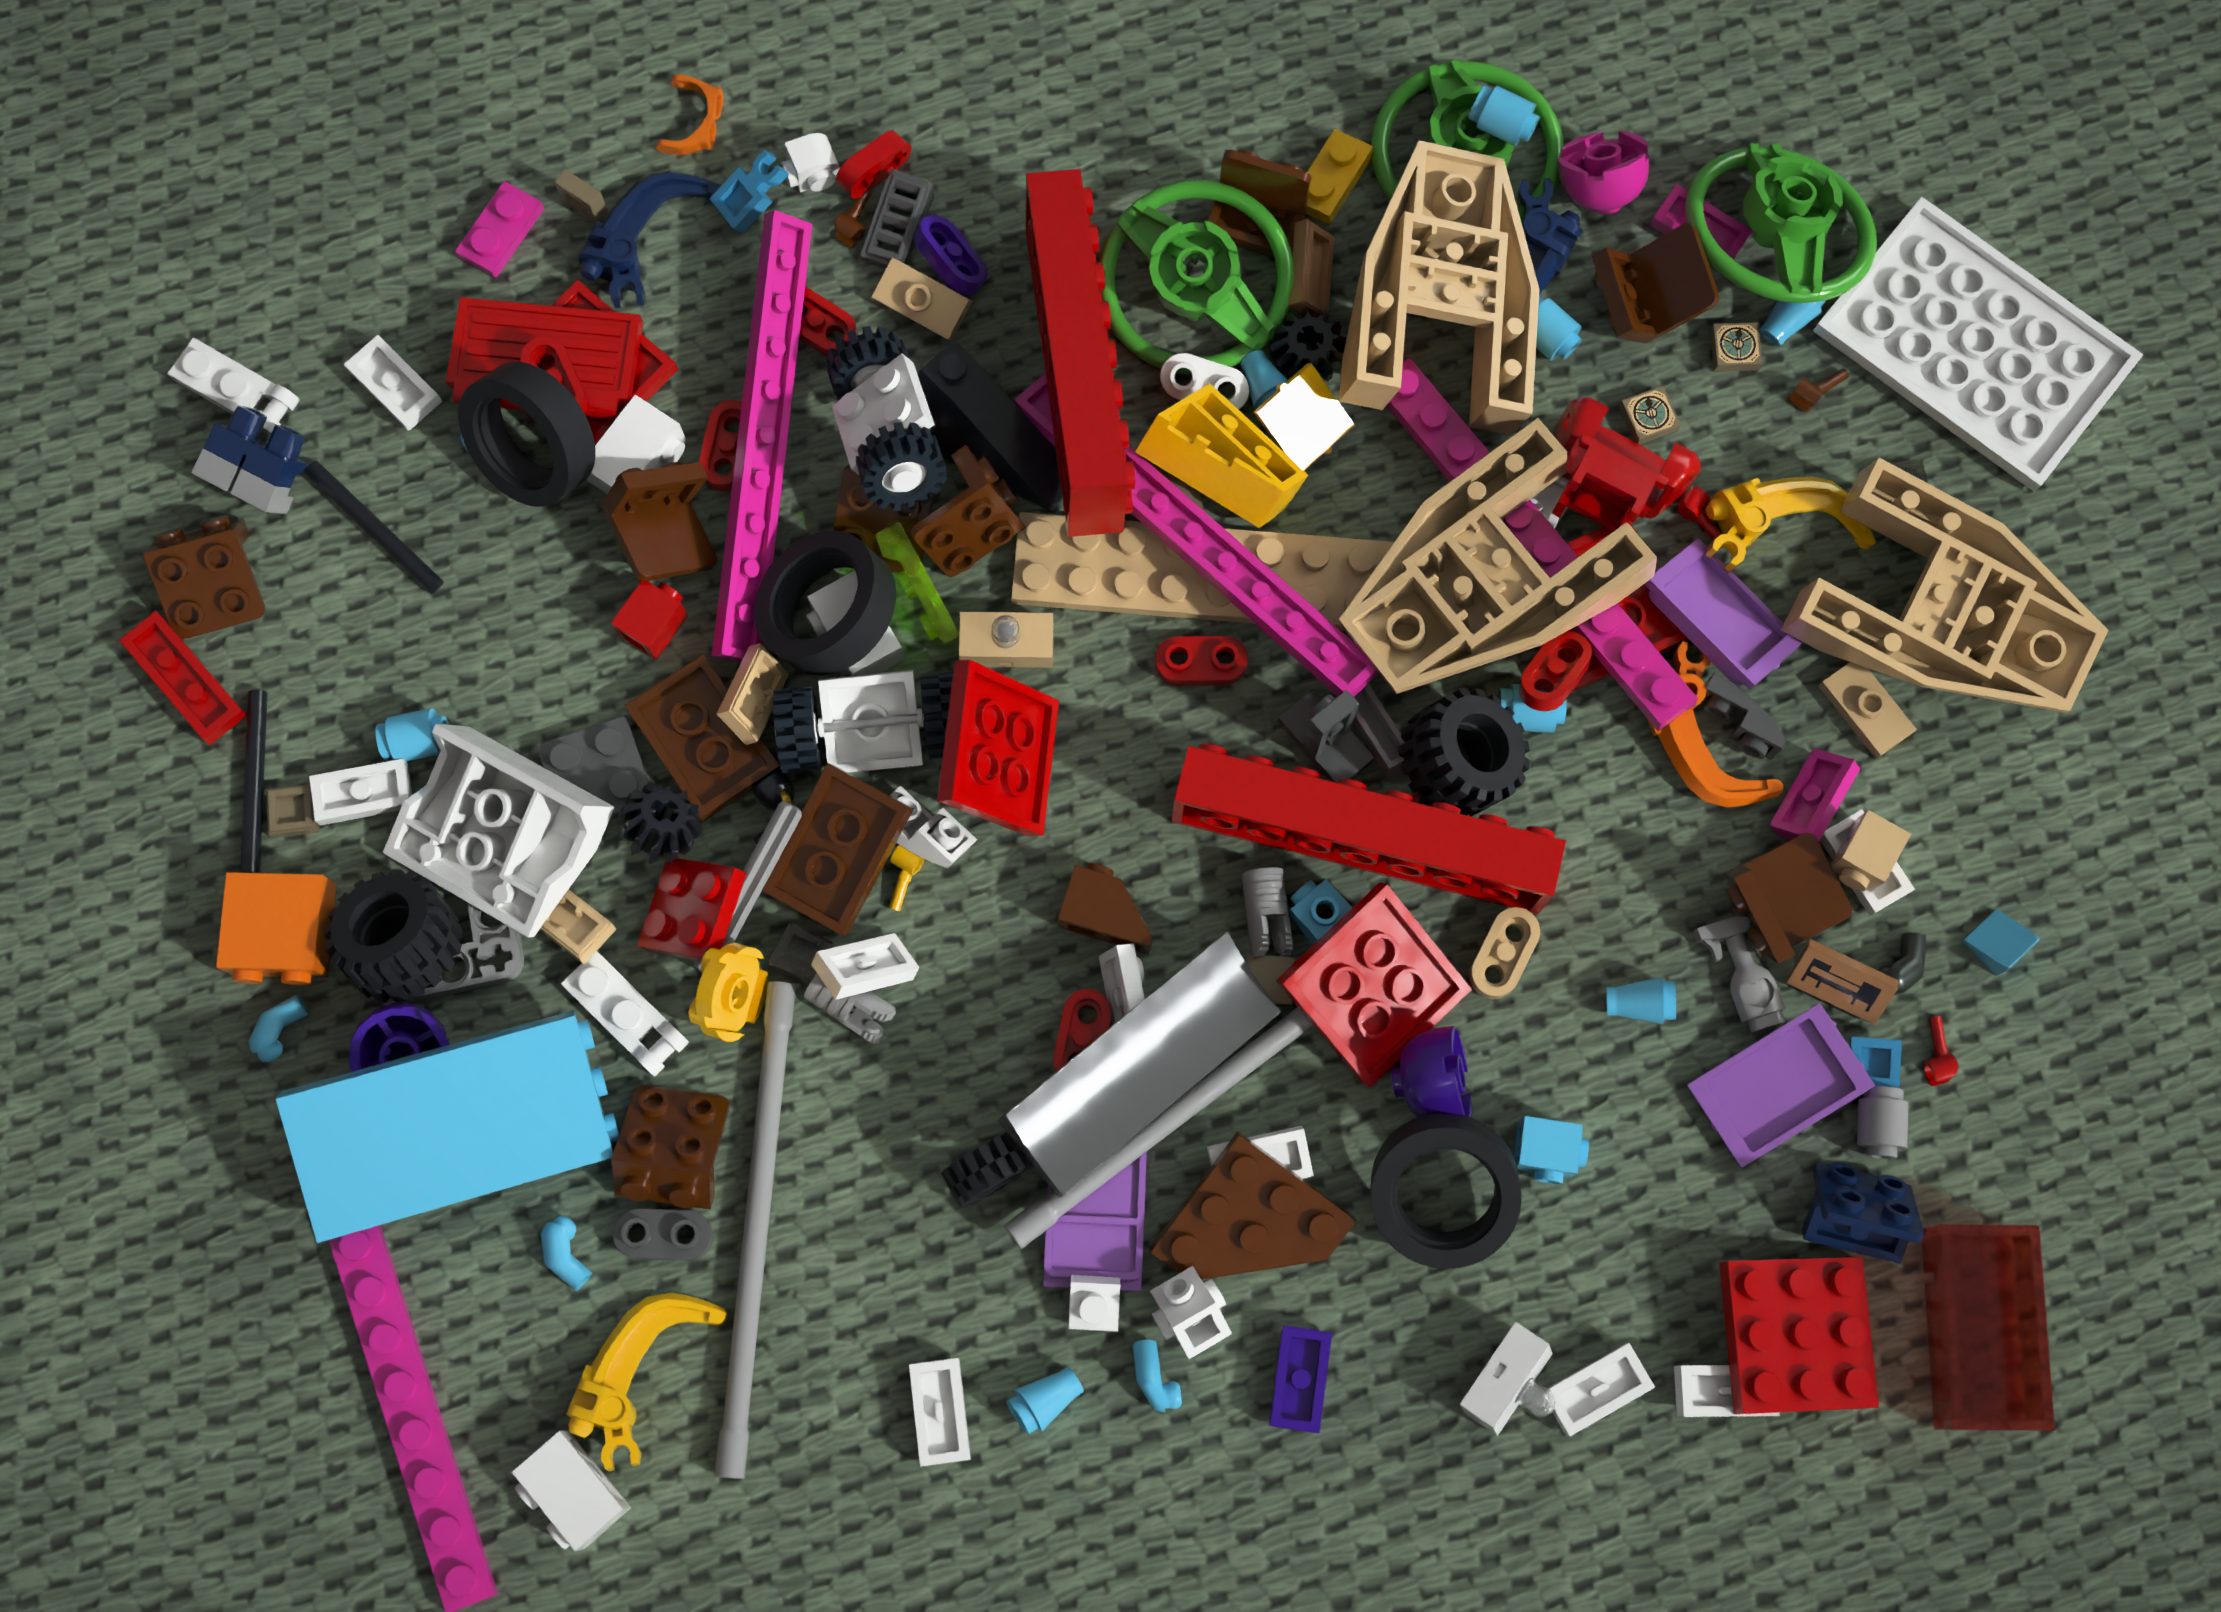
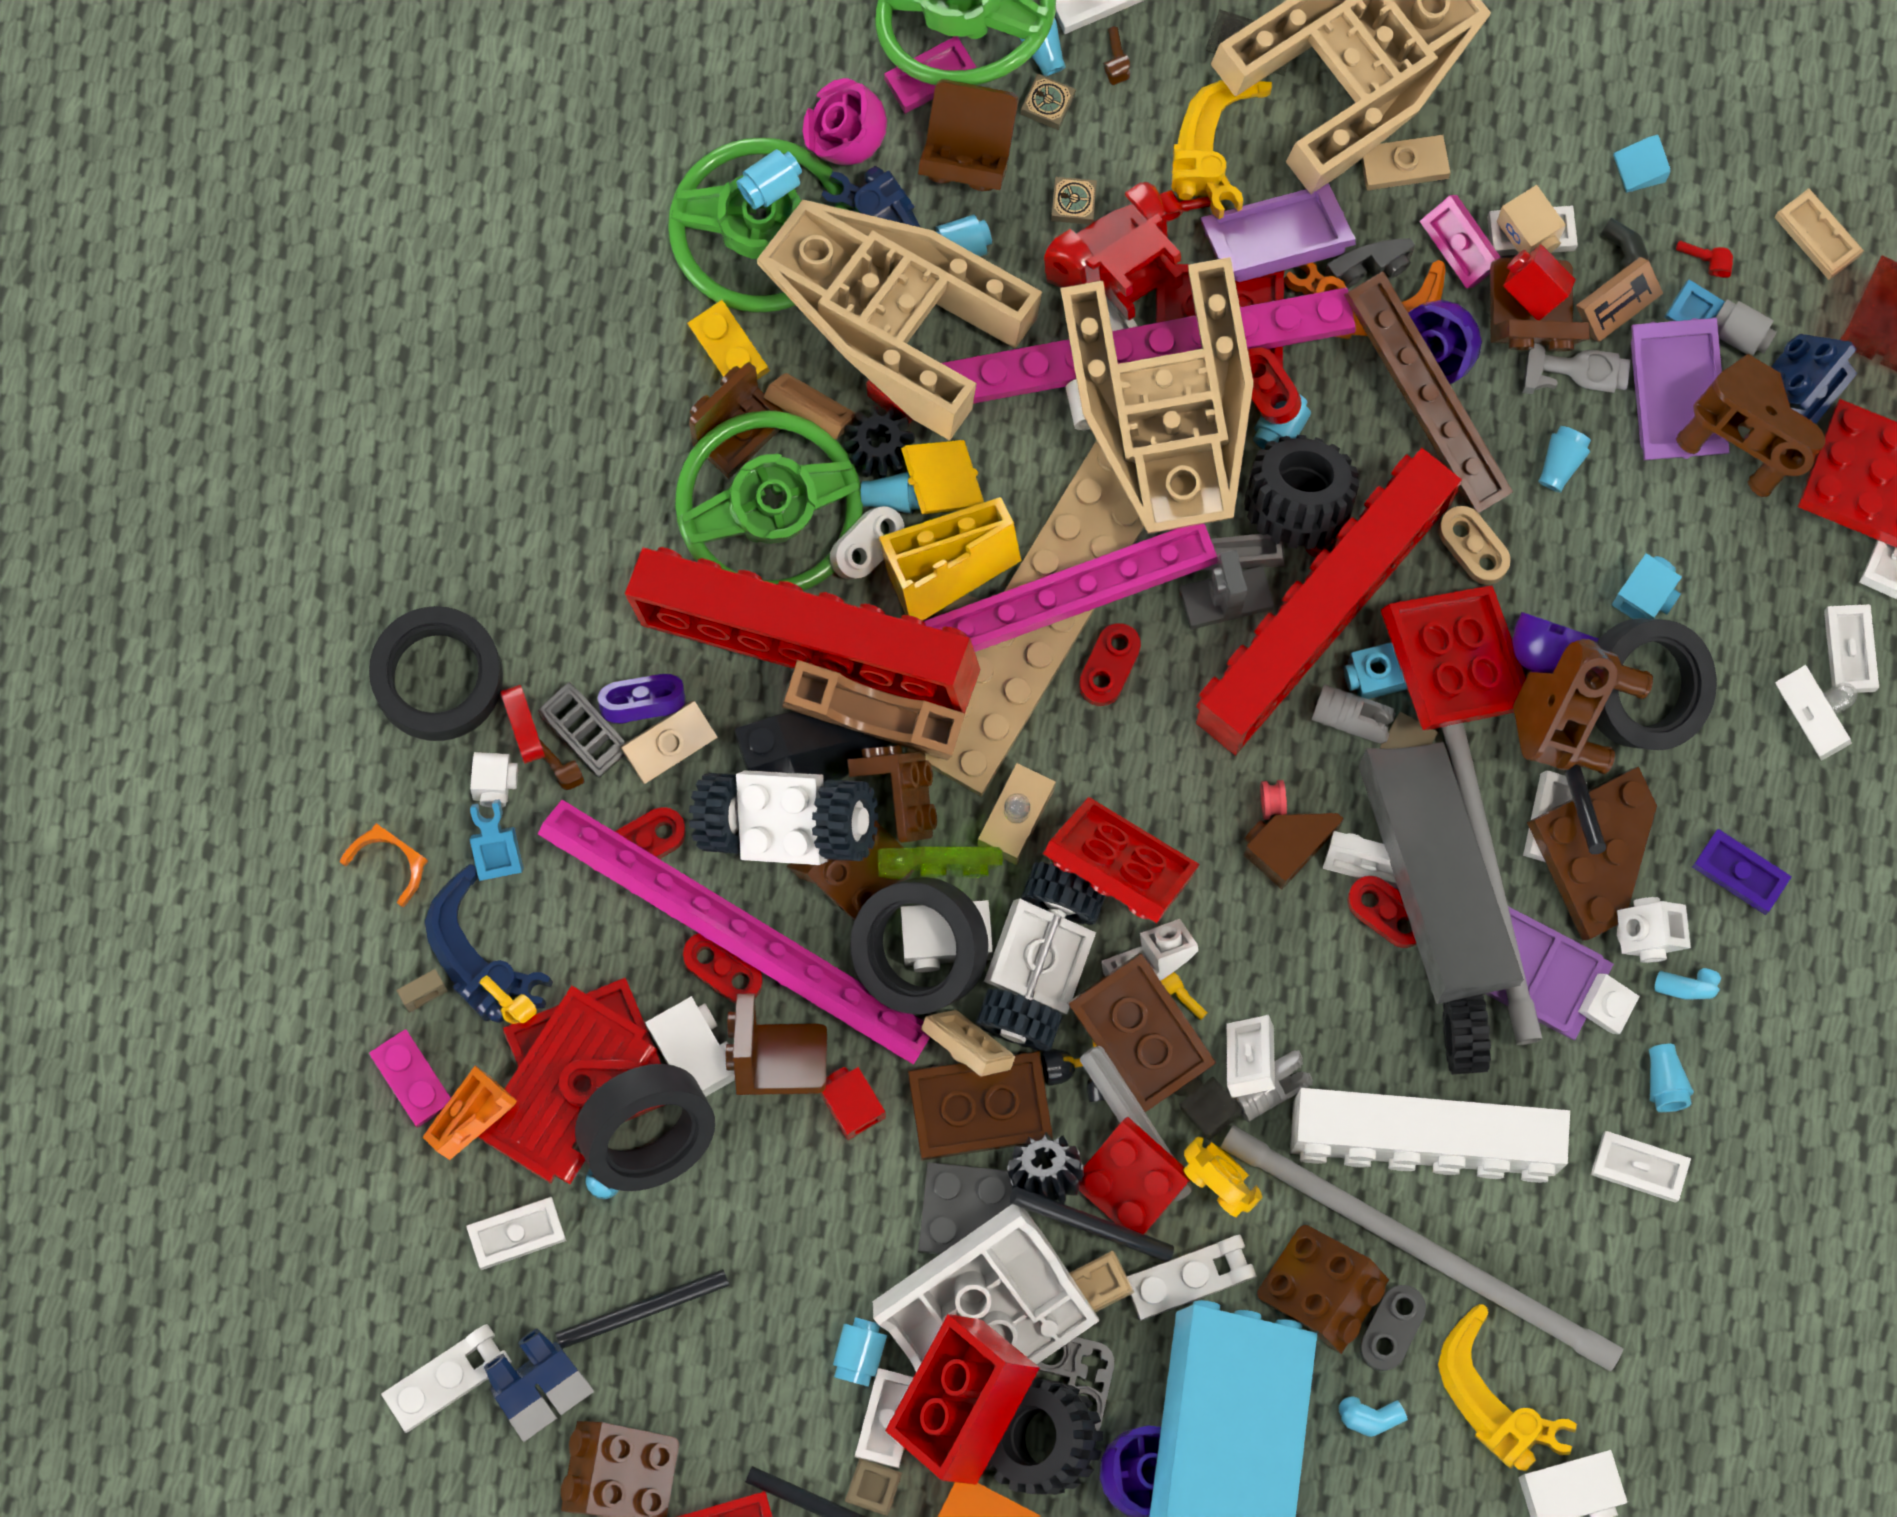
camera: 65 degrees left, 0 degrees up
(385, 838) = (962, 1399): none -> red brick
(479, 284) = (468, 1113): none -> orange wing
(596, 281) = (513, 1011): none -> yellow hand
(624, 888) = (1091, 1224): none -> black bar
(866, 1175) = (1429, 1133): none -> white brick
(878, 23) = (419, 625): none -> black tyre
(1030, 448) = (873, 712): none -> medium nougat arch
(1141, 874) = (1273, 799): none -> coral bush
(1303, 1162) = (1585, 810): none -> black bar
(1375, 1107) = (1561, 708): none -> reddish brown piece
(1634, 829) = (1428, 392): none -> reddish brown plate
(1693, 817) = (1449, 335): none -> dark purple cylinder
(1807, 1162) = (1755, 398): none -> reddish brown piece
(1809, 882) = (1538, 281): none -> red brick
(2029, 1156) = (1819, 234): none -> tan plate

